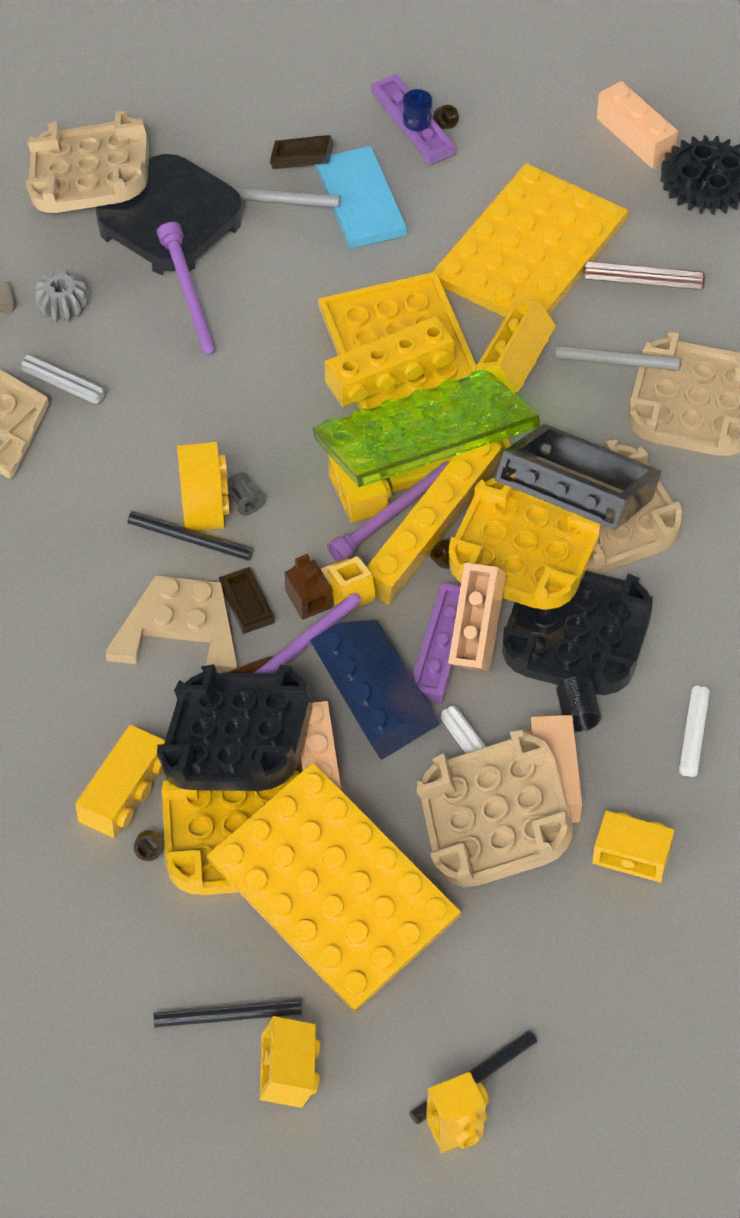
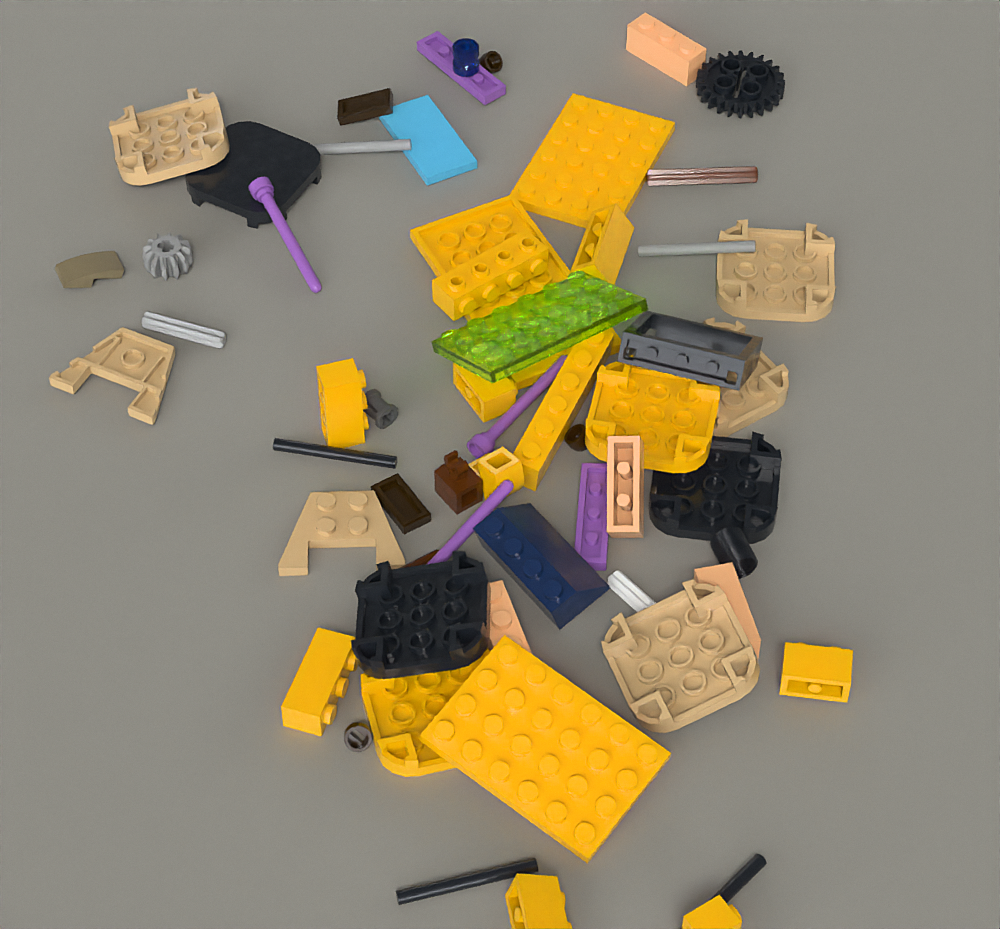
camera: 10 degrees left, 5 degrees down
(694, 731) = (844, 564): white axle -> none

